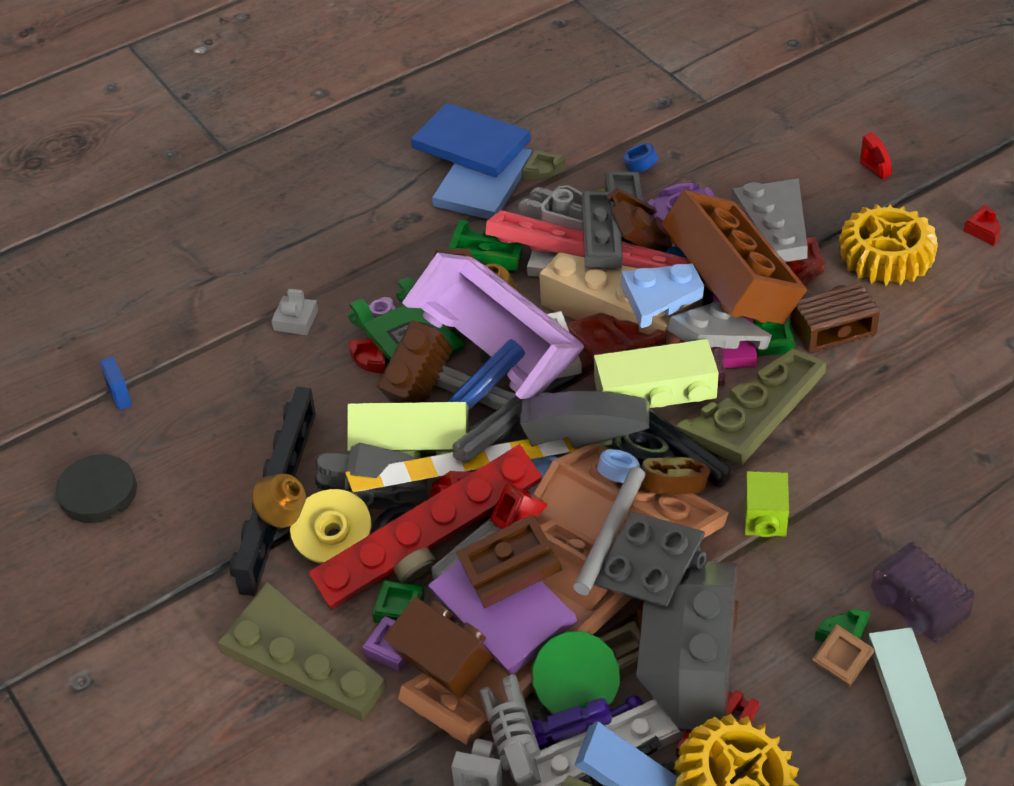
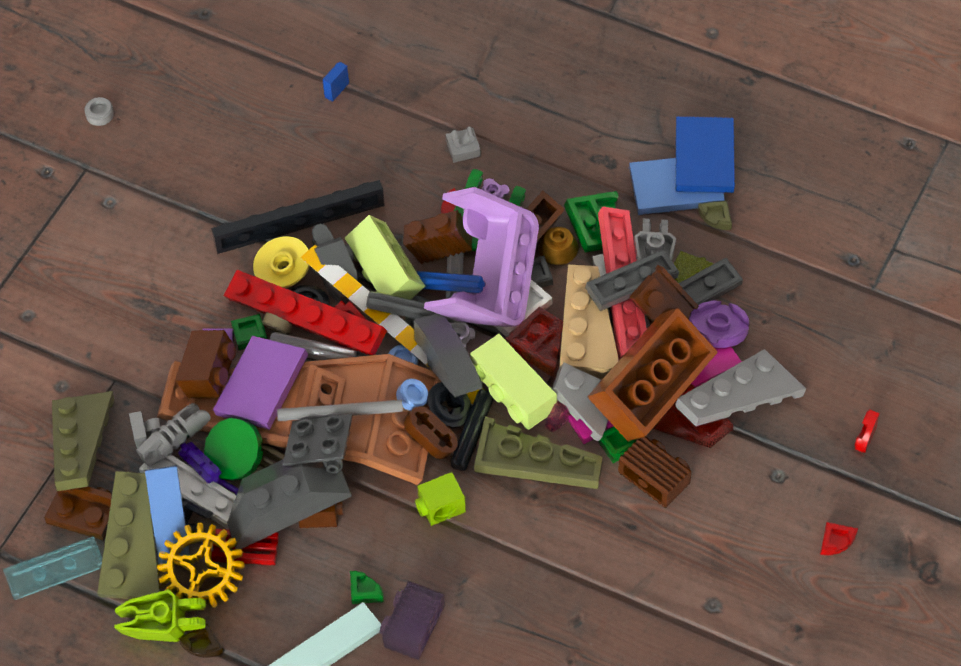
camera: 60 degrees right, 10 degrees up
(96, 488) = (249, 123): pearl dark grey tile -> none
(278, 499) = (272, 211): pearl gold cone -> none
(300, 653) = (184, 299): olive wing -> none
(509, 561) = (280, 366): reddish brown plate -> none
(516, 505) = (336, 352): red slope -> none
(640, 157) = (762, 273): blue tile -> none
(661, 290) = (584, 344): light blue wing -> none
(843, 655) = (336, 593): medium nougat tile -> none
(888, 244) = (769, 490): yellow gear -> none

